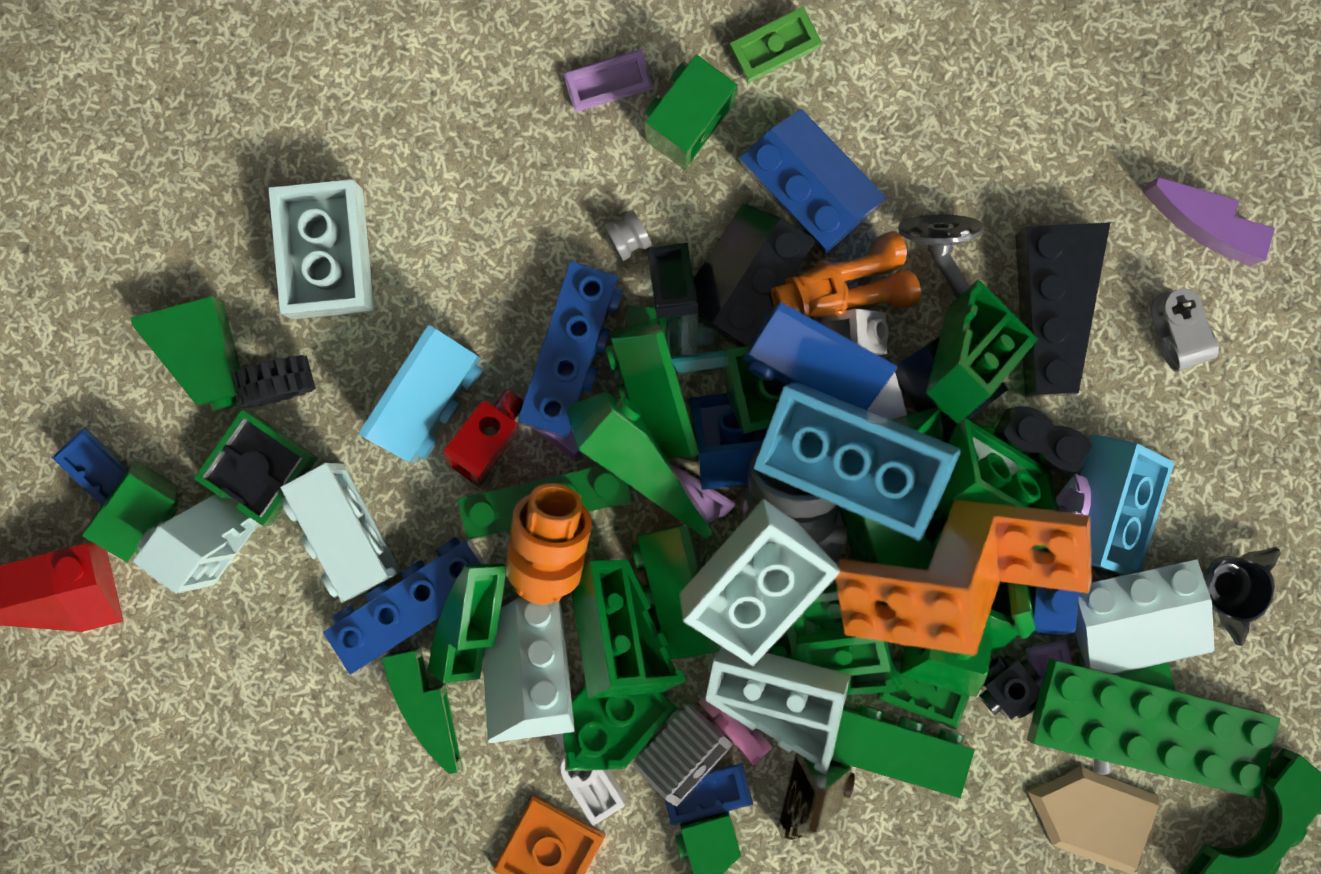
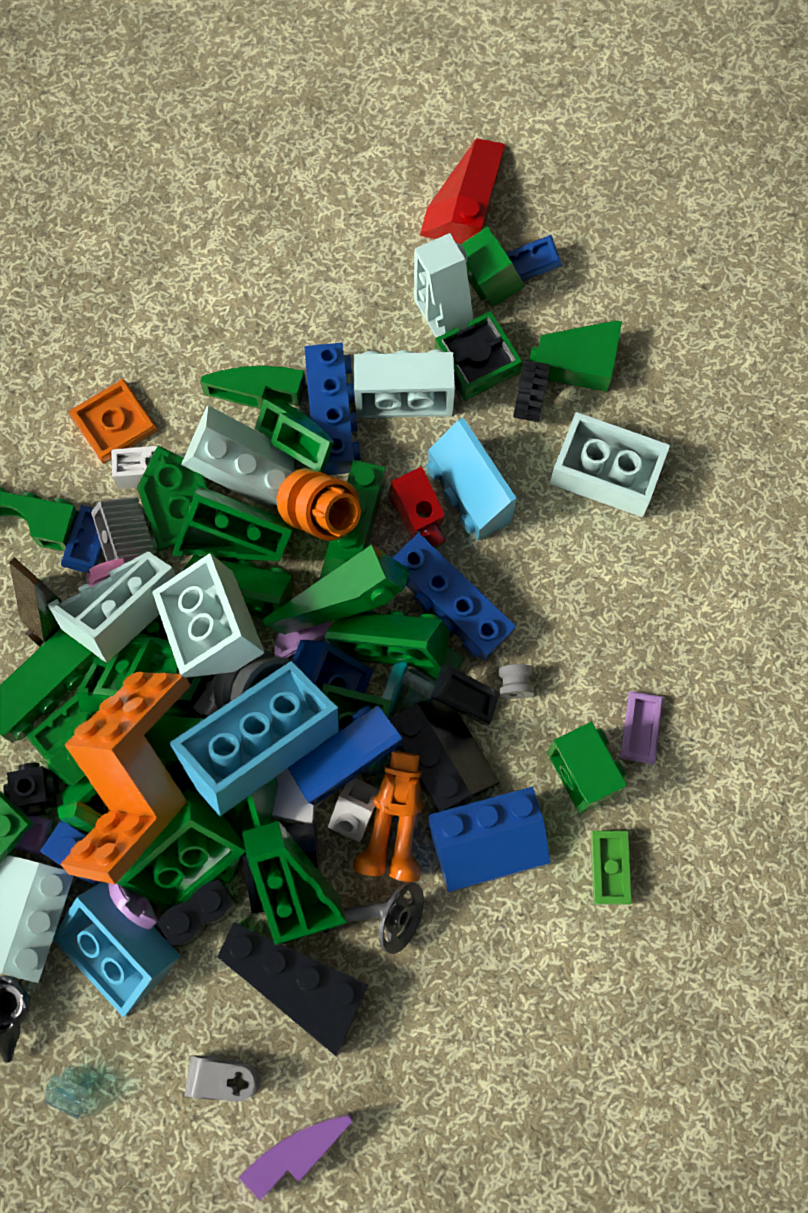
camera: 120 degrees right, 15 degrees down
(1276, 473) = (66, 1095): none -> clear light blue tile

